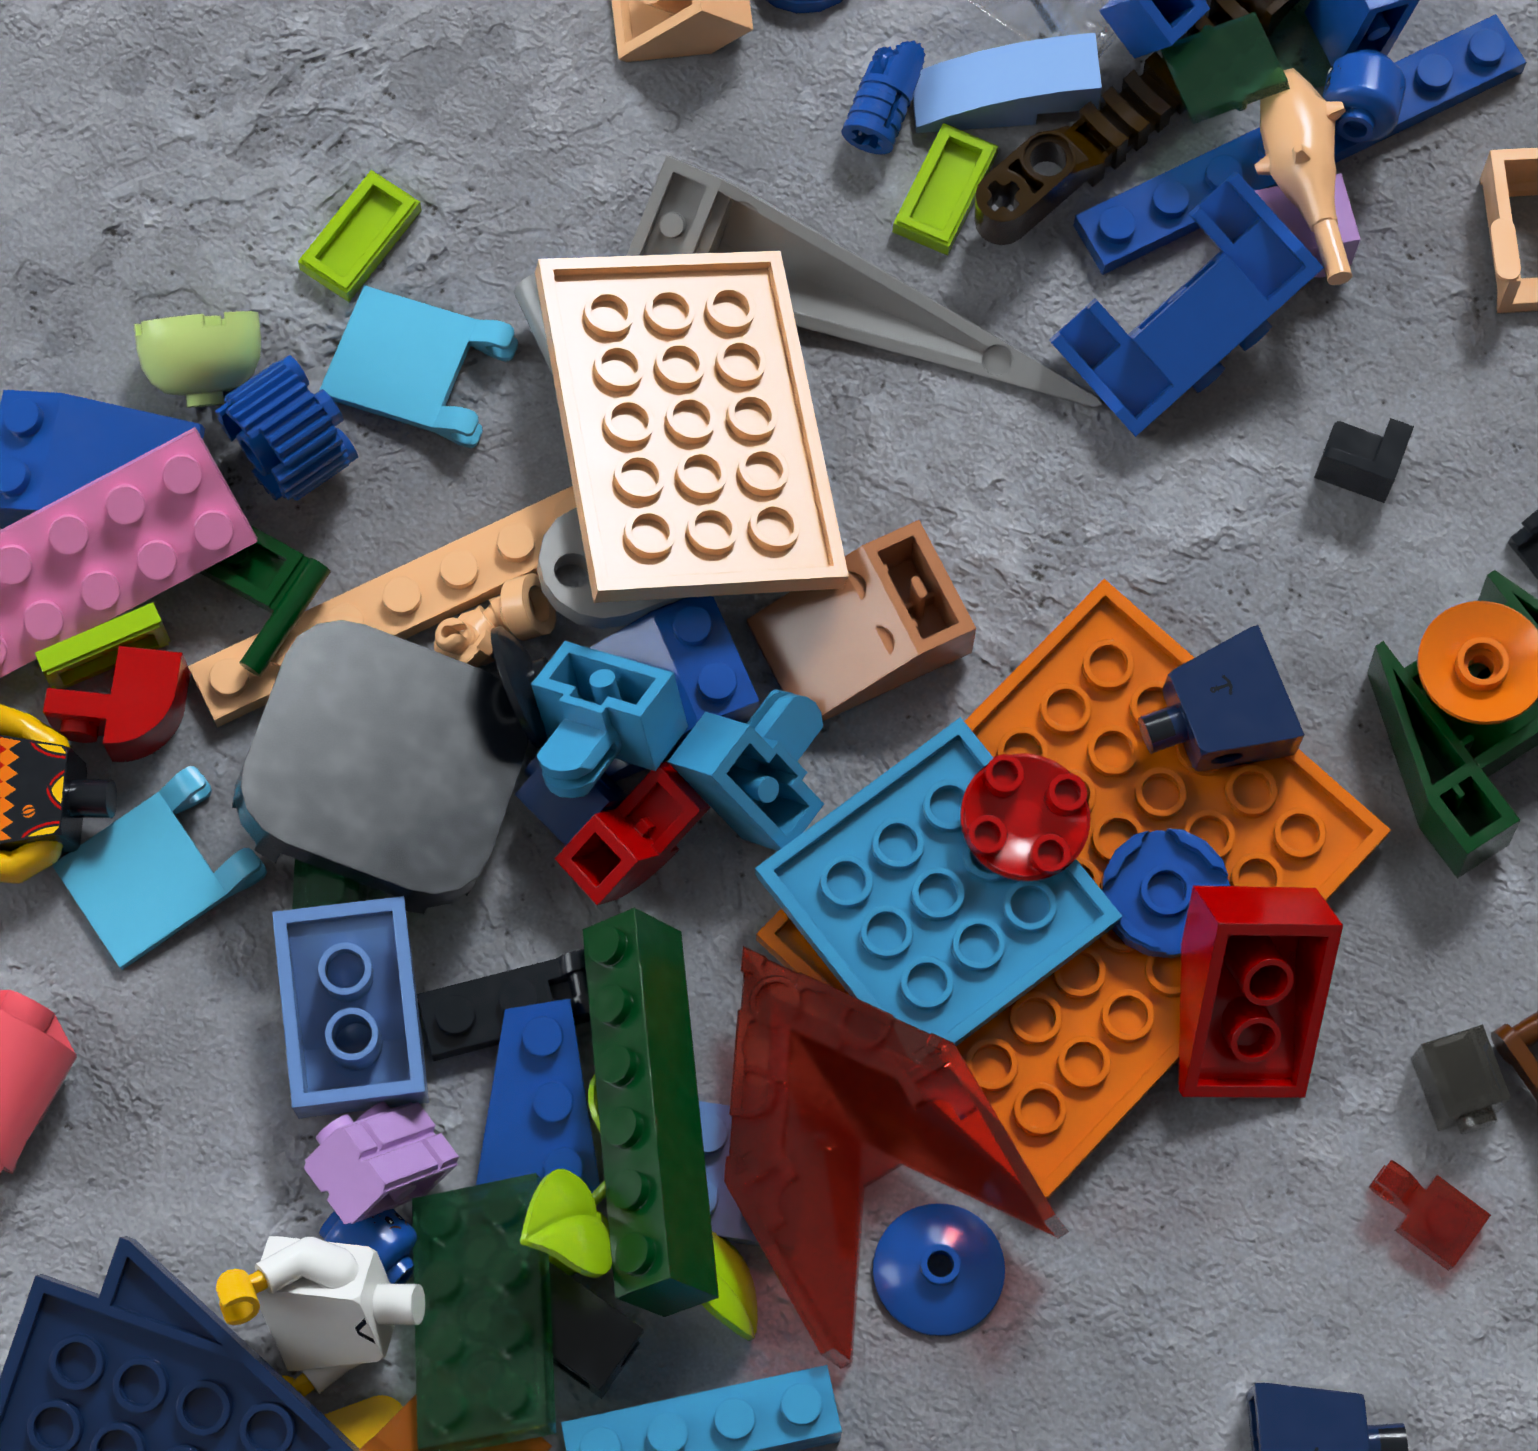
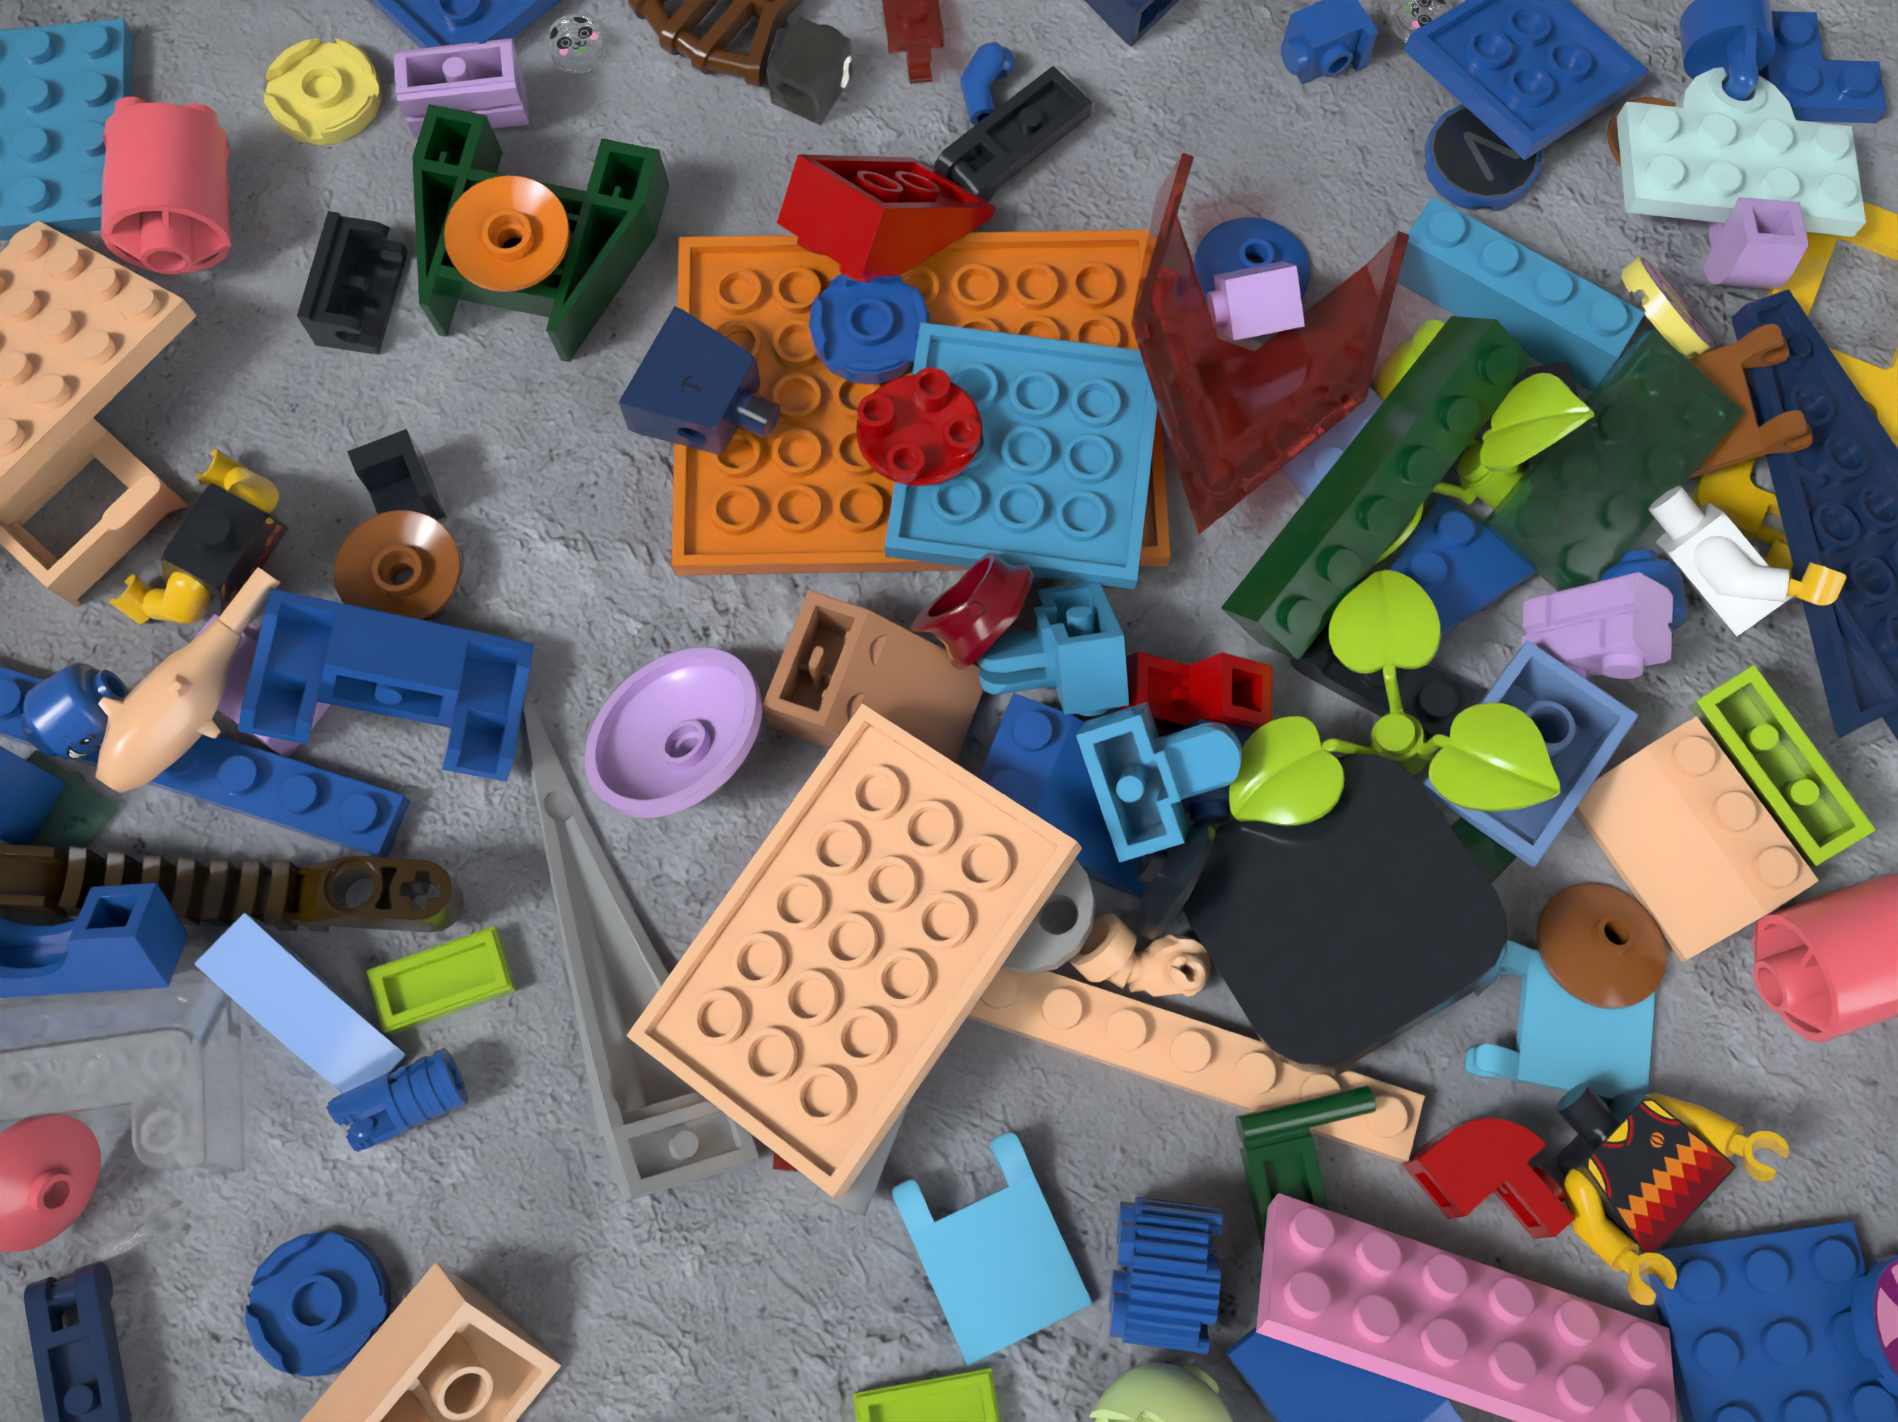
camera: 135 degrees left, 0 degrees up
(97, 648) = (1469, 1240): lime tile -> none
(154, 1193) = (1782, 766): none -> lime brick
(175, 1085) = (1692, 840): none -> light nougat slope
(211, 953) = (1583, 958): none -> dark orange dish
(370, 930) = (1485, 765): none -> lime plant
(847, 728) = (976, 608): none -> dark red hat
(896, 1212) = (1256, 301): none -> lavender brick
(967, 460) = (673, 732): none -> lavender dish
(1224, 68) = (141, 824): clear green piece -> none
(1242, 1191) = (1015, 134): none -> black plate
(1295, 371) = (392, 544): none -> dark orange dish
(1329, 1220) = (988, 63): none -> blue arm
(1420, 292) = (213, 548): none -> torso

